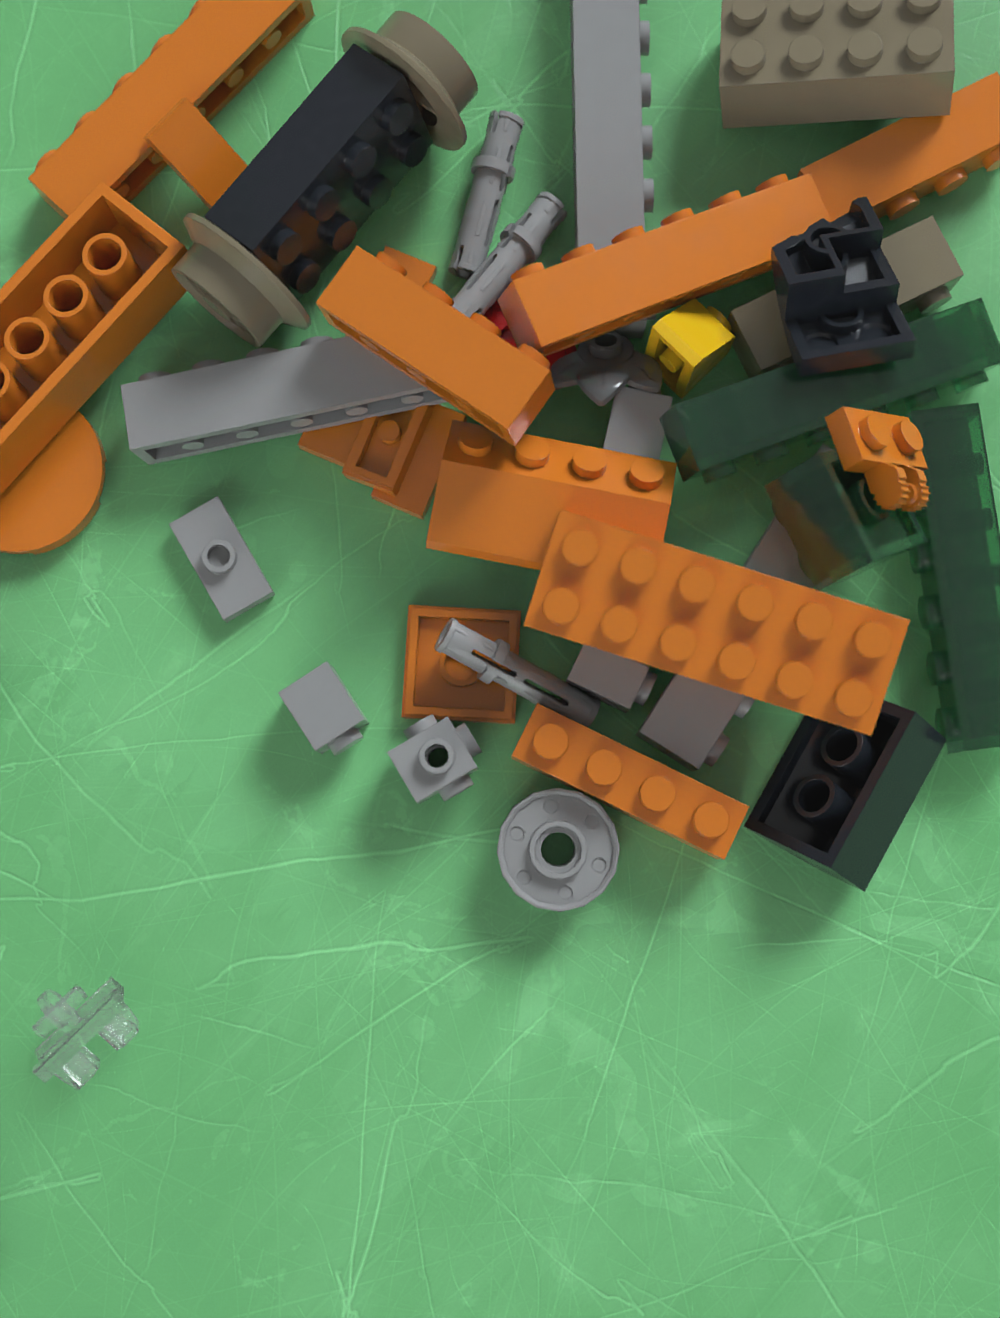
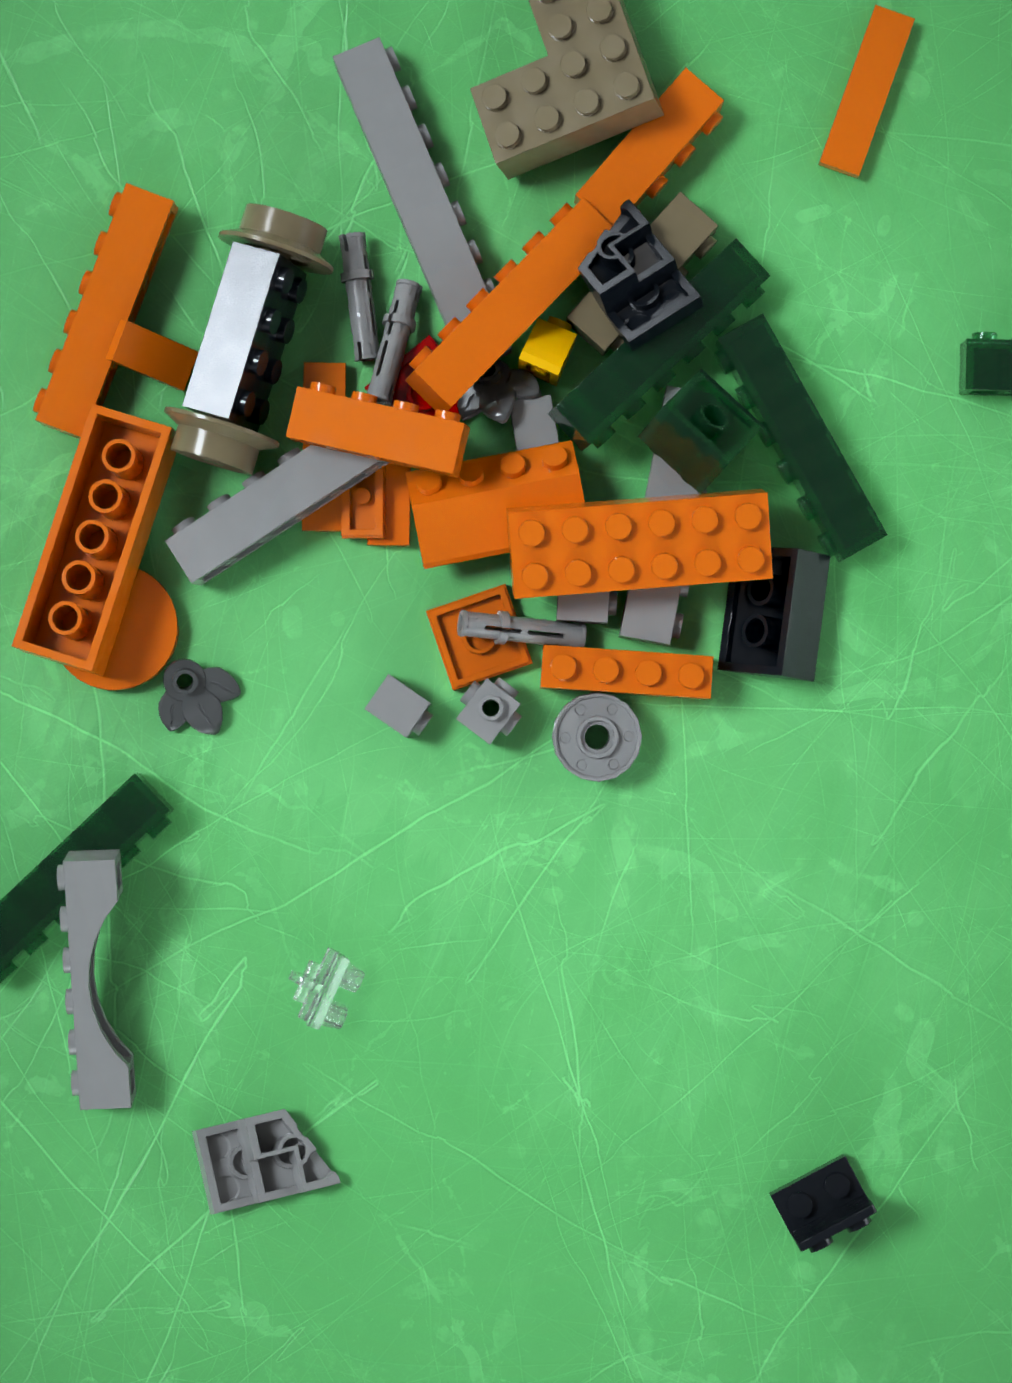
camera: 25 degrees left, 5 degrees up
(84, 603) = (200, 701): none -> dark grey plate
(221, 559) = (282, 631): light grey plate -> none
(886, 452) = (711, 379): orange hinge -> none

